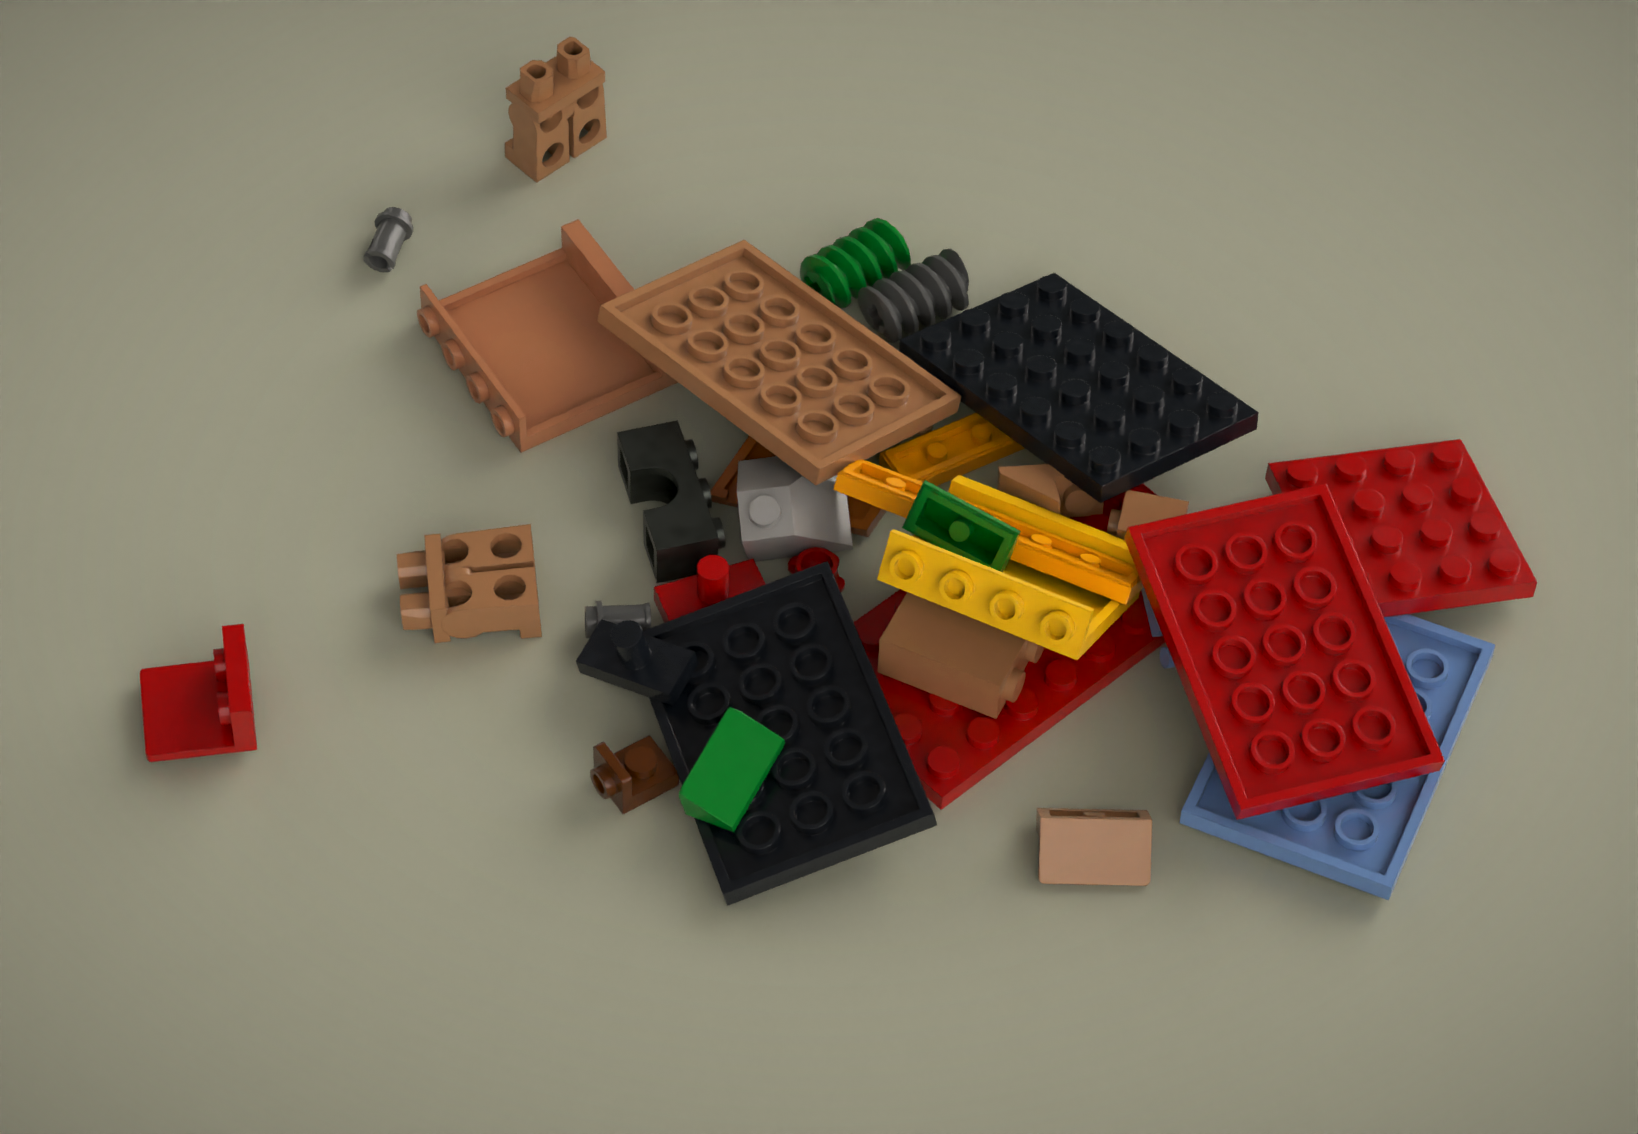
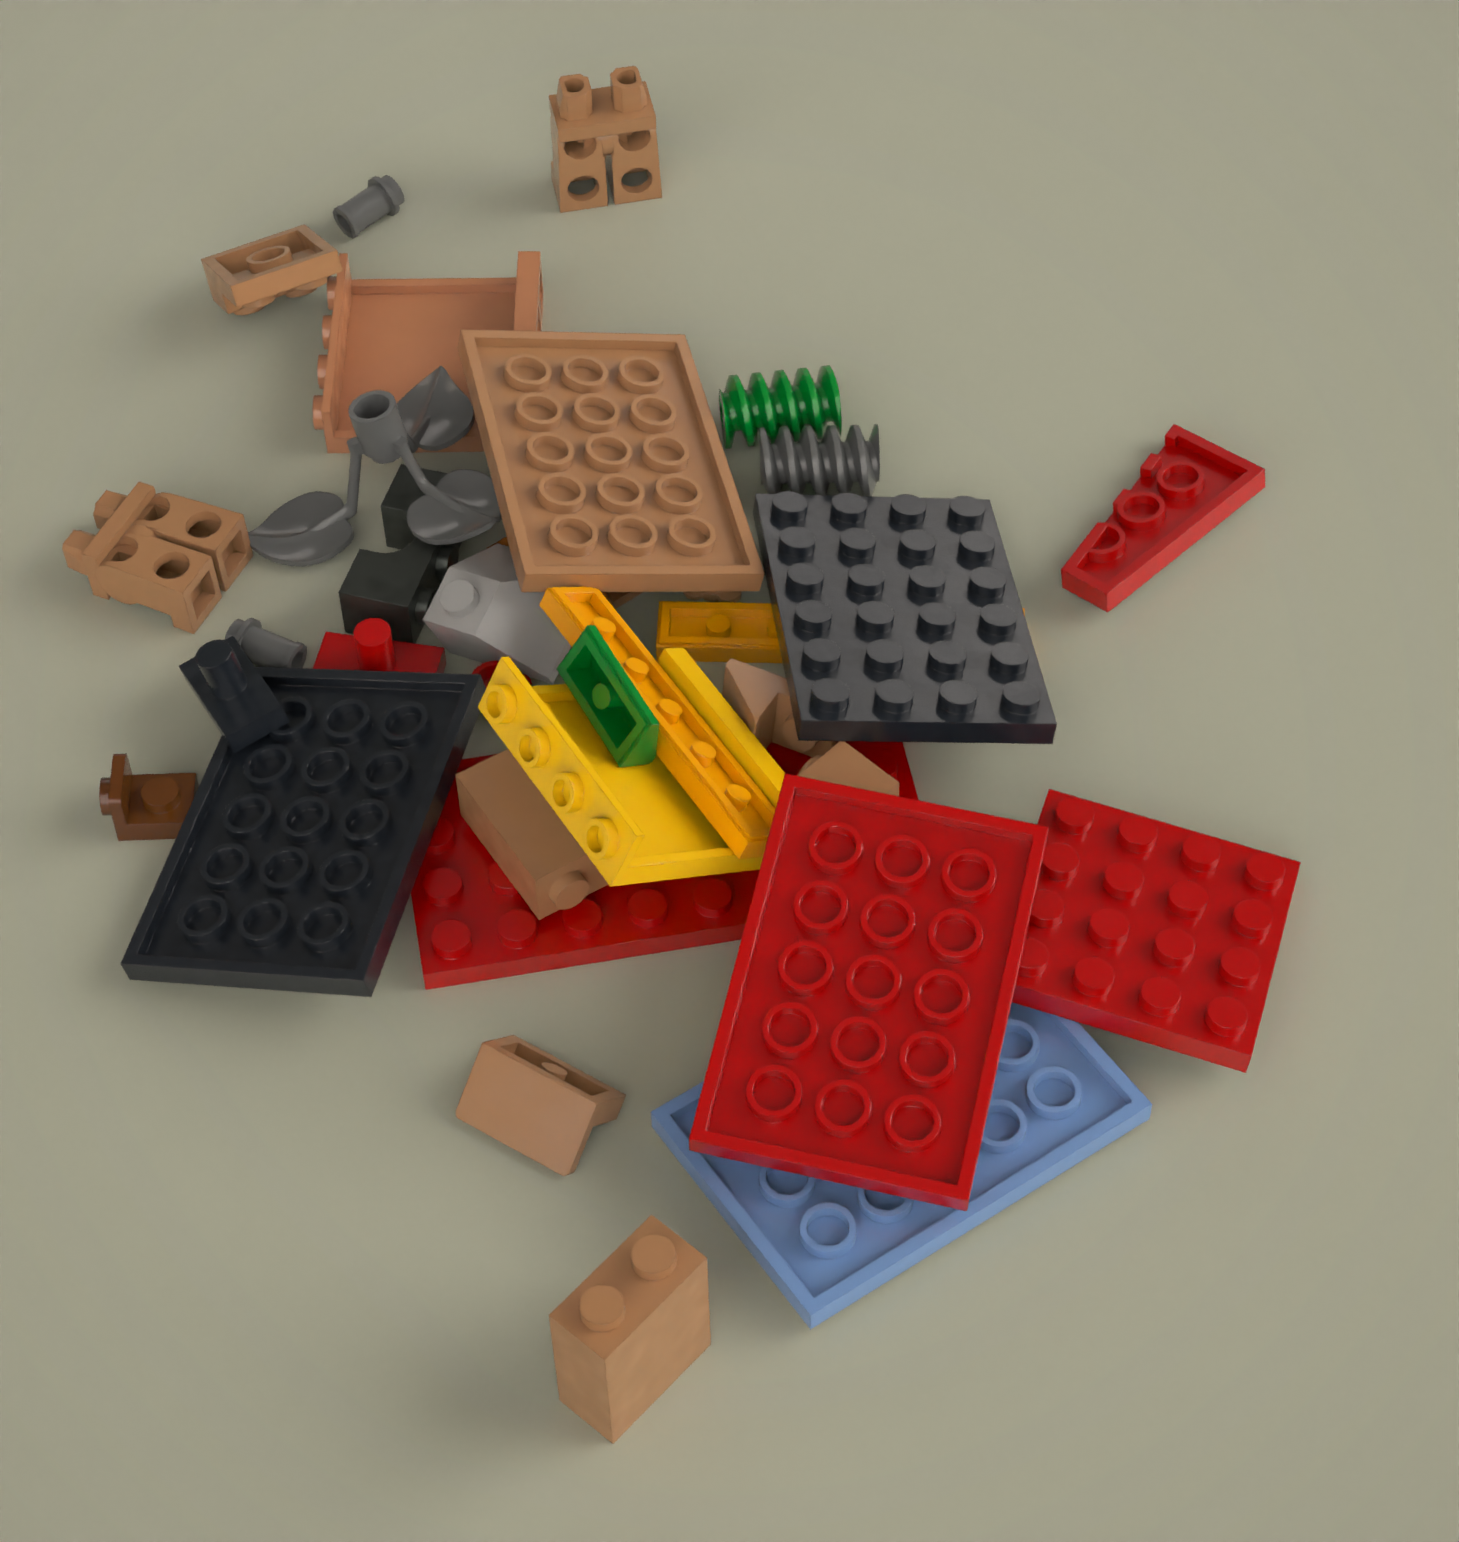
camera: 35 degrees right, 0 degrees up
(372, 322) = (274, 266): none -> medium nougat plate
(600, 396) = (427, 417): none -> dark grey plant
(730, 770) = (215, 837): green slope -> none
(1182, 232) = (1167, 510): none -> red wing
(1304, 949) = (631, 1328): none -> medium nougat brick

